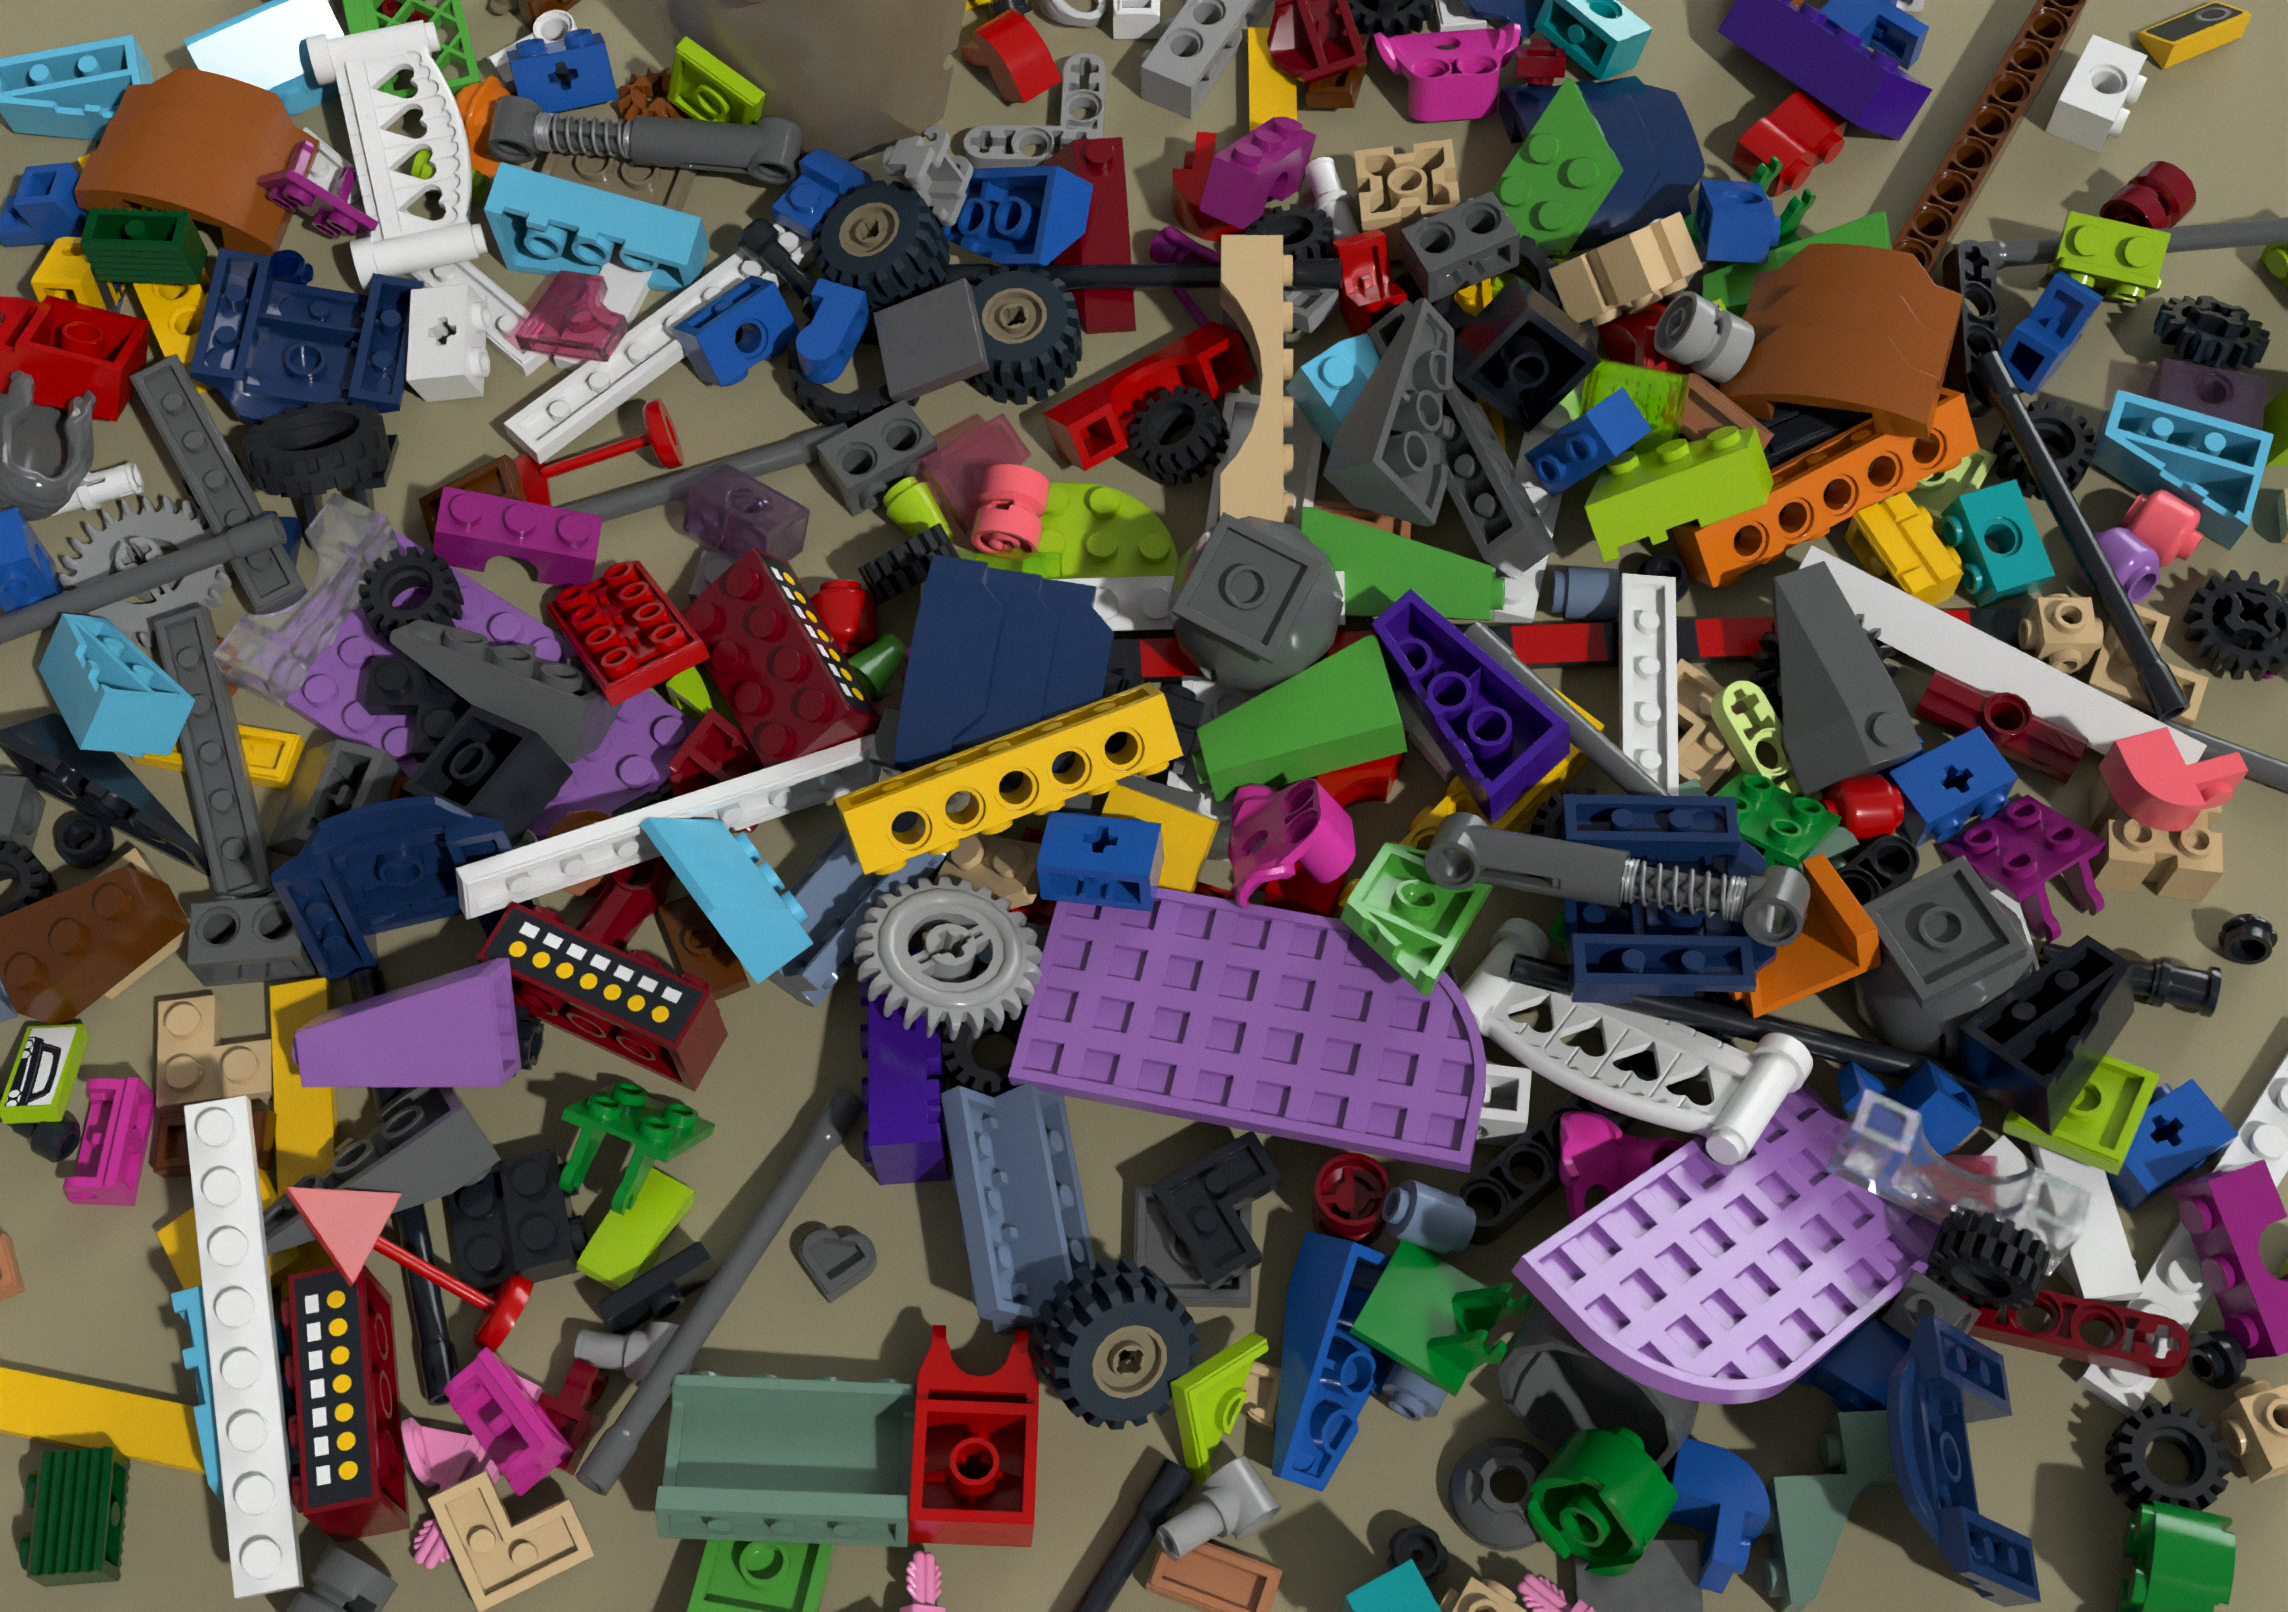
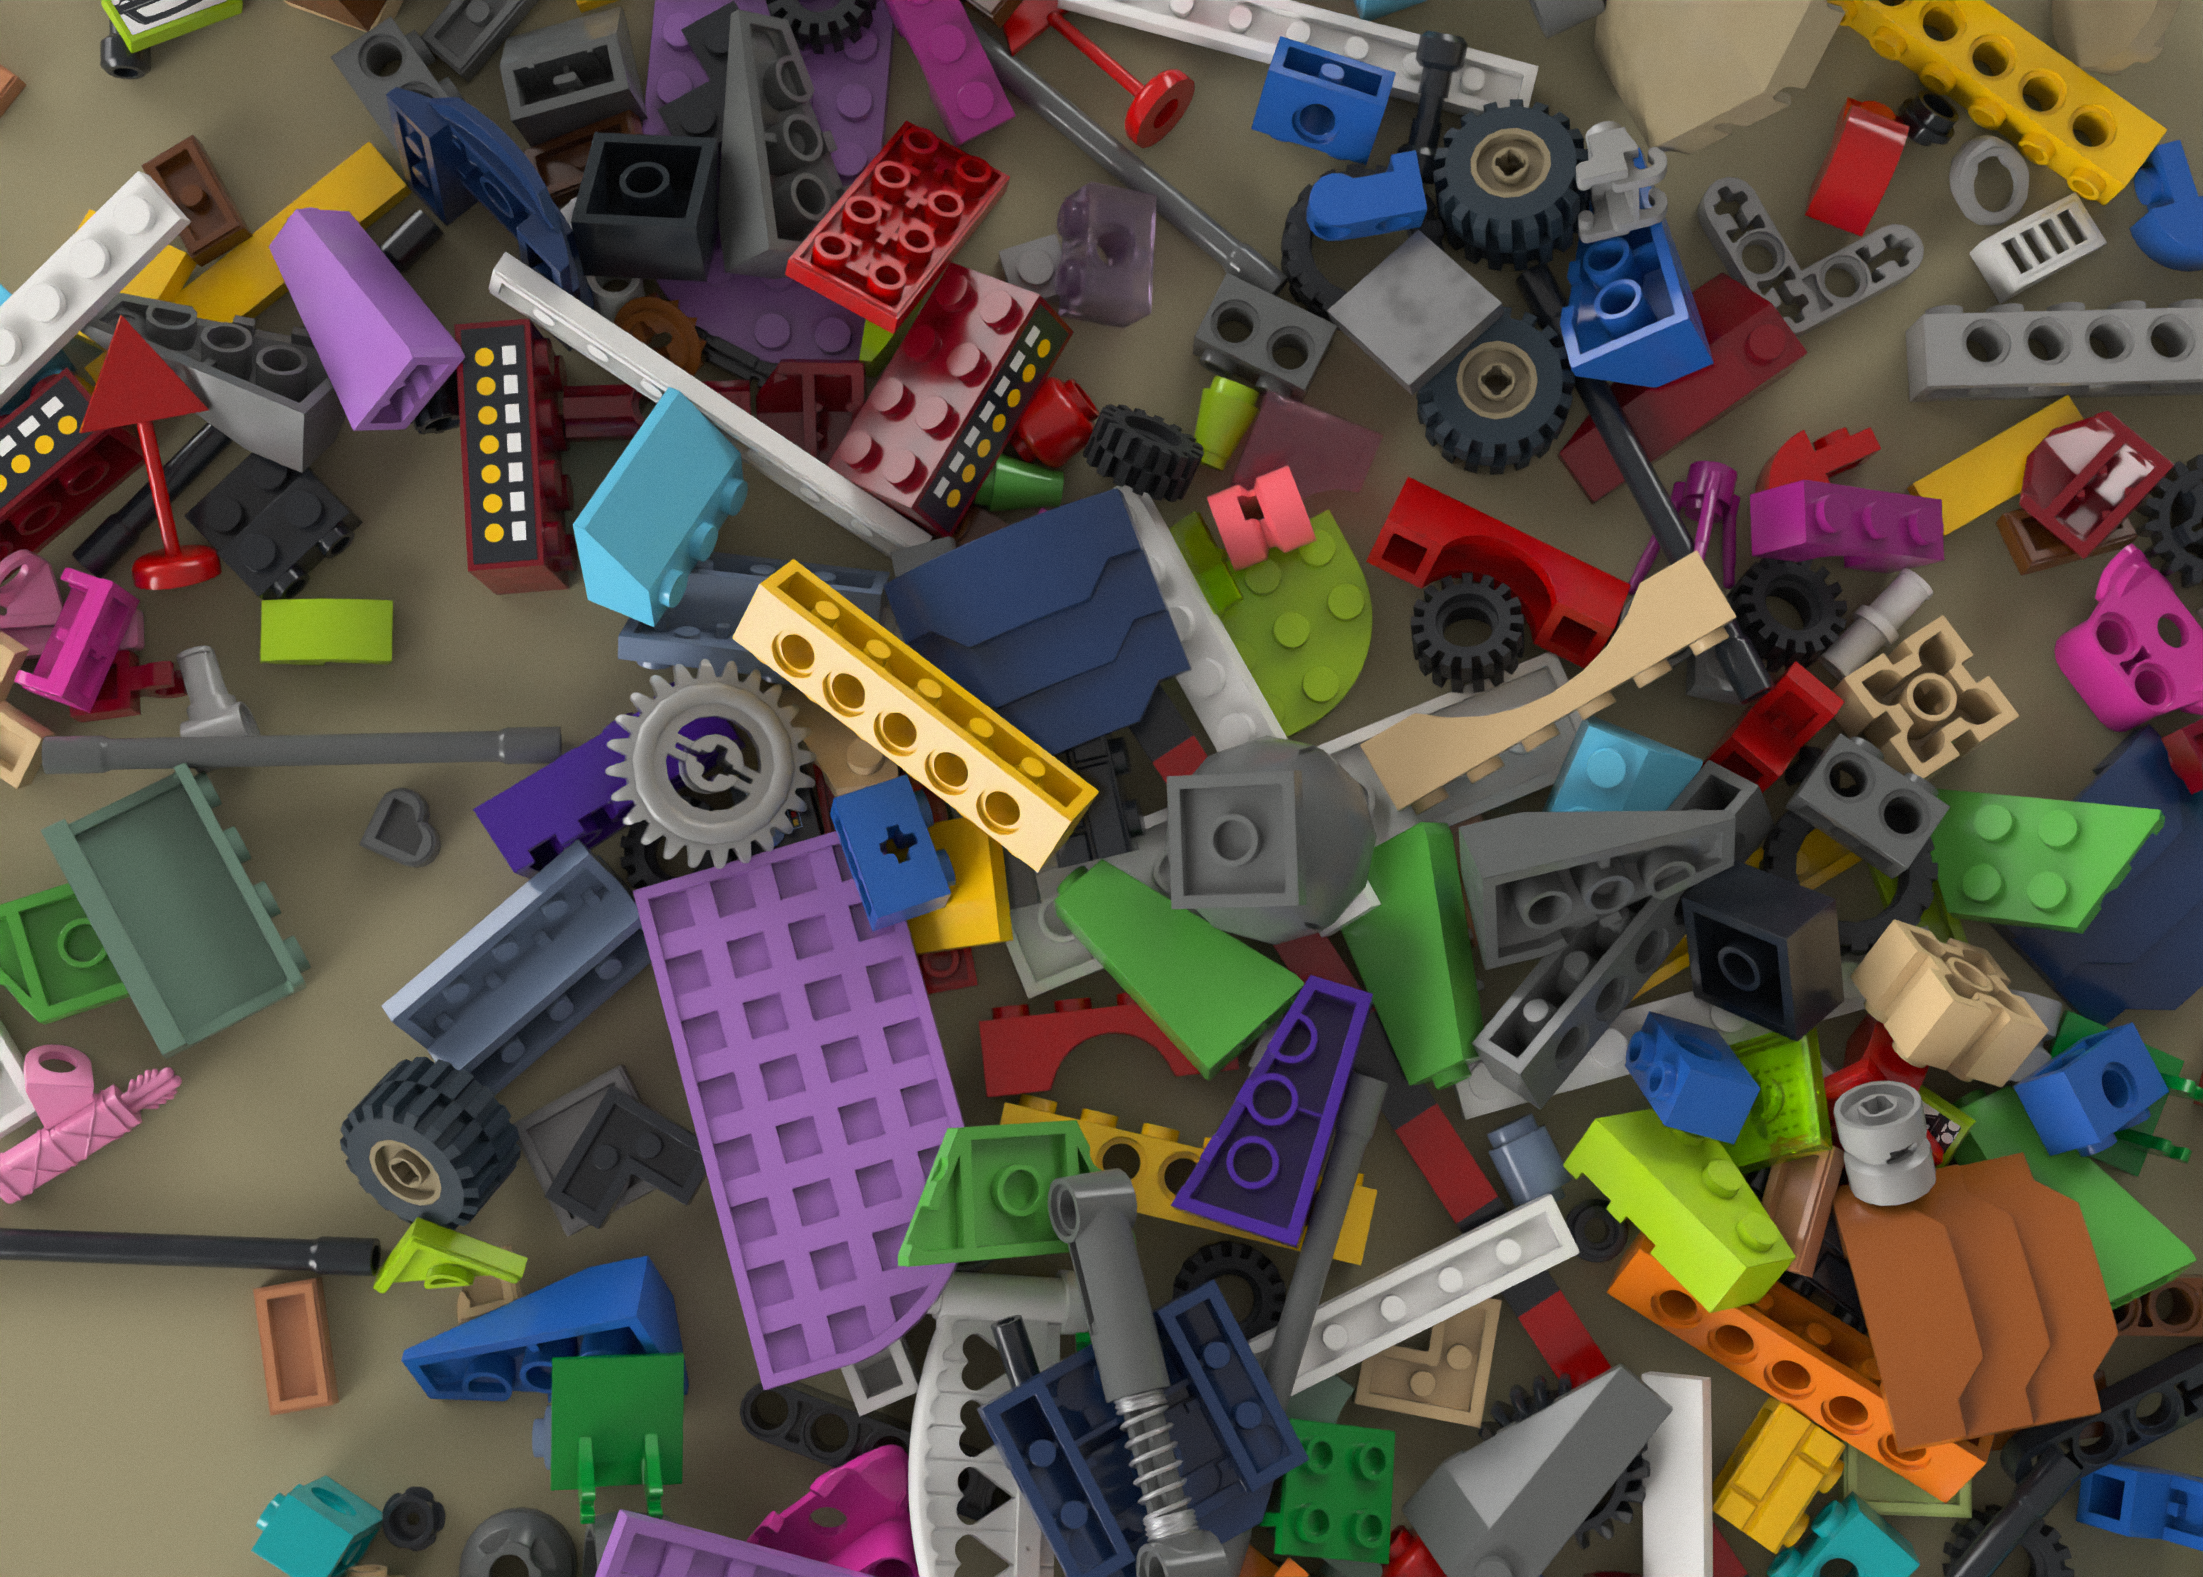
camera: 60 degrees right, 20 degrees up
(113, 1143) = (148, 112): dark pink hinge -> none
(196, 1065) = (261, 128): tan plate -> none
(627, 1112) = (410, 572): green plate -> none
(658, 1290) = (277, 692): black plate -> none
(821, 183) = (1557, 74): blue brick -> none
(981, 1425) = (308, 1060): red brick -> none
(1231, 1502) = (364, 1326): light grey pin -> none
(1299, 826) = (1033, 1040): dark pink piece -> none
(1350, 1198) = (699, 1282): dark red wheel -> none
(1428, 1217) = (708, 1371): sand blue brick -> none
(1743, 748) = (1432, 1418): yellowish green beam -> none

